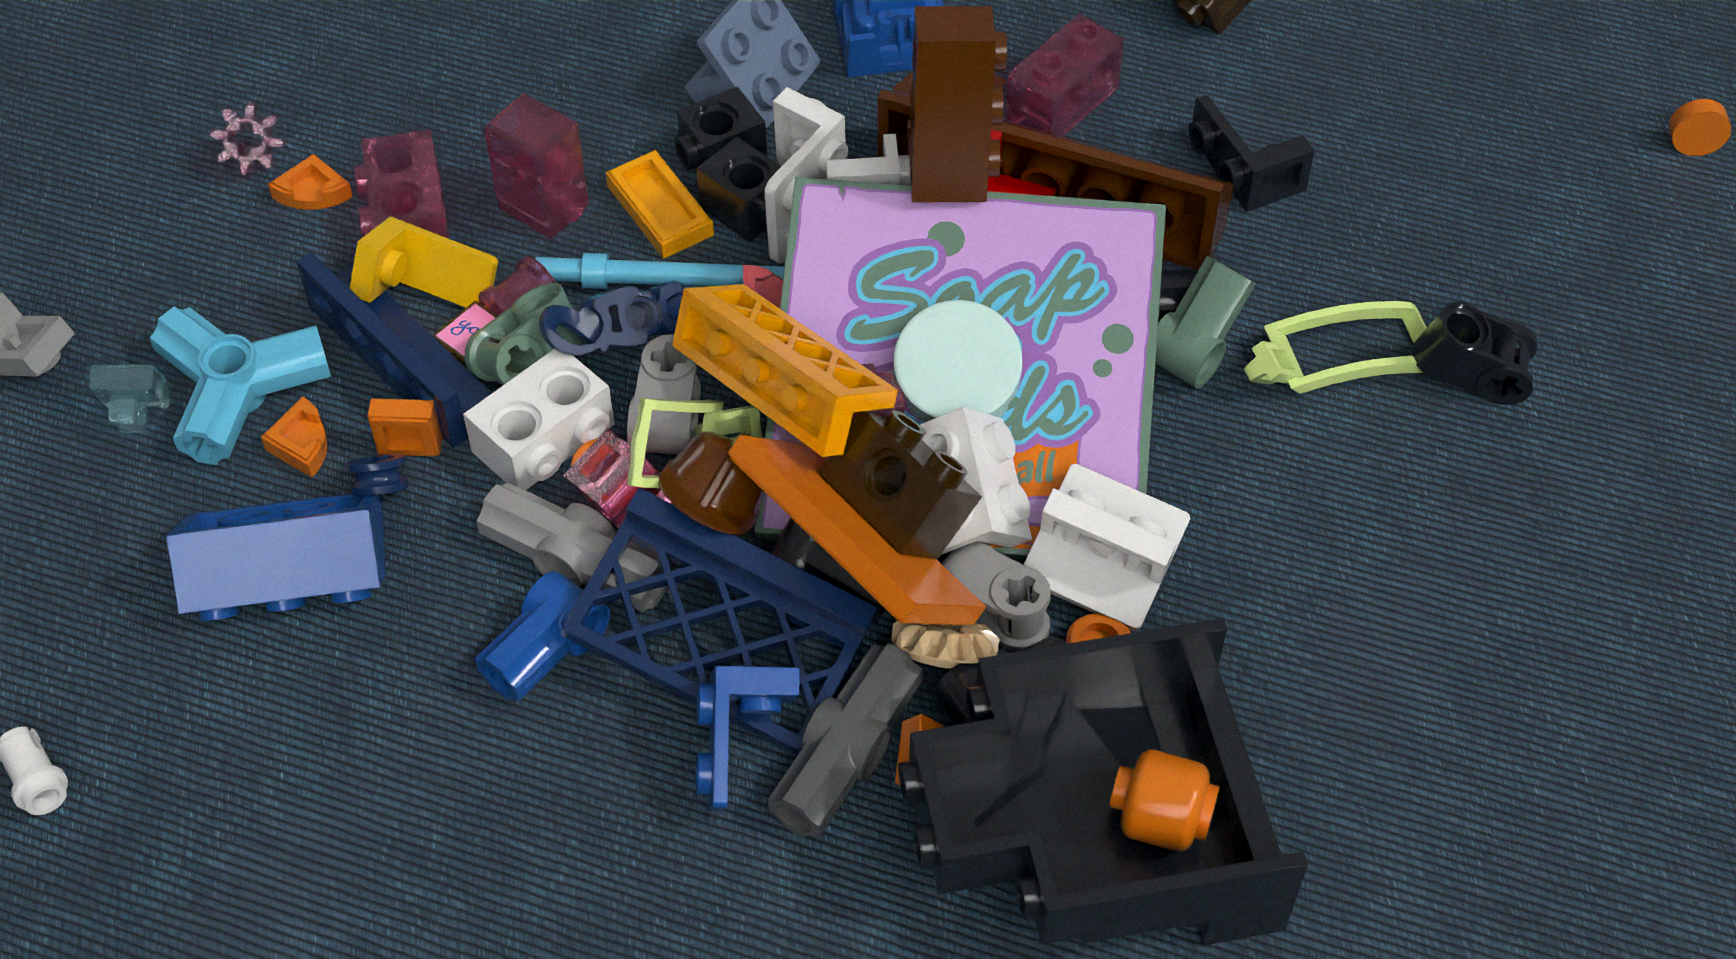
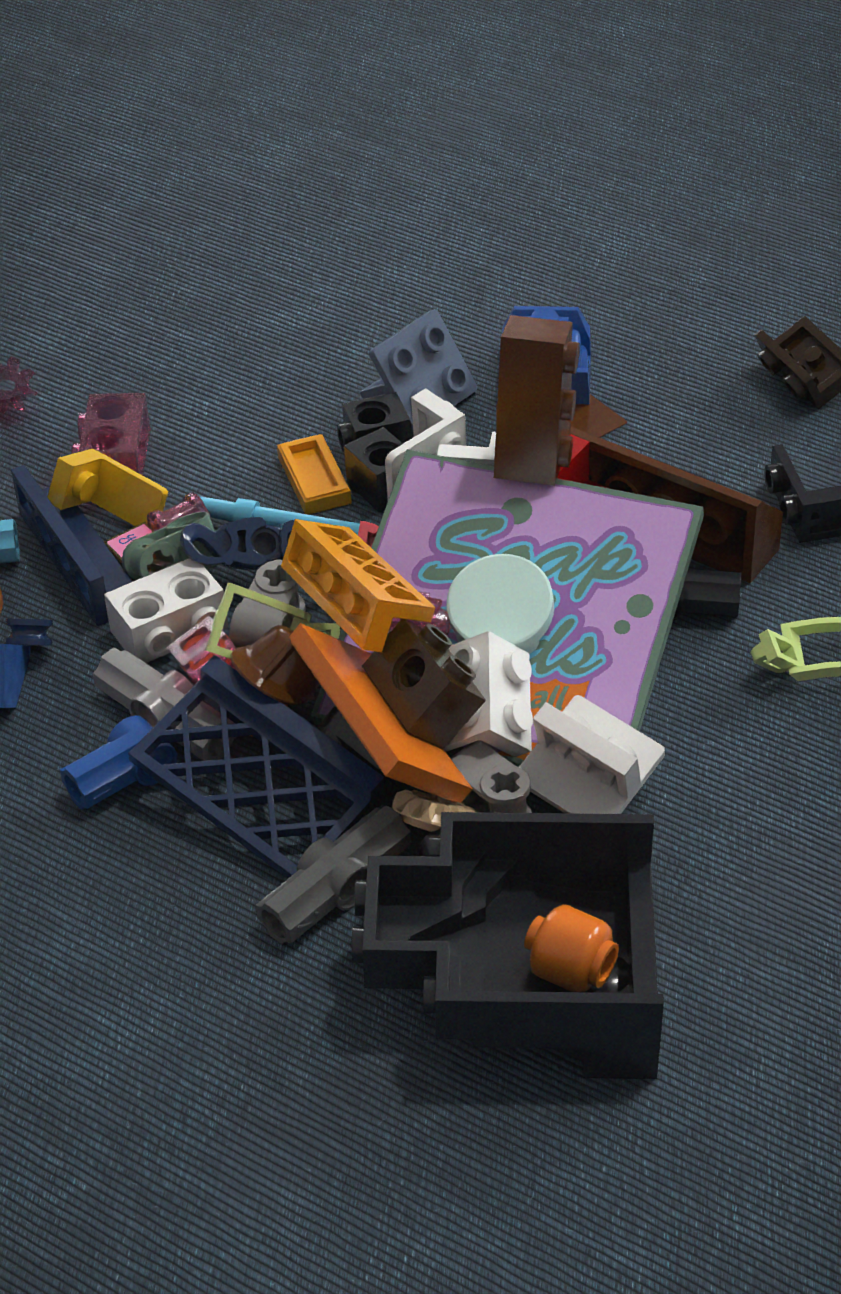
camera: 15 degrees right, 10 degrees down
(310, 186) = (46, 427): orange tile -> none
(405, 427) = (61, 601): orange tile -> none
(537, 165) = (219, 428): clear pink brick -> none
(759, 692) = (266, 818): blue bracket -> none
(1065, 77) = (672, 419): clear pink brick -> none
(1193, 336) = (715, 624): sand green piece -> none

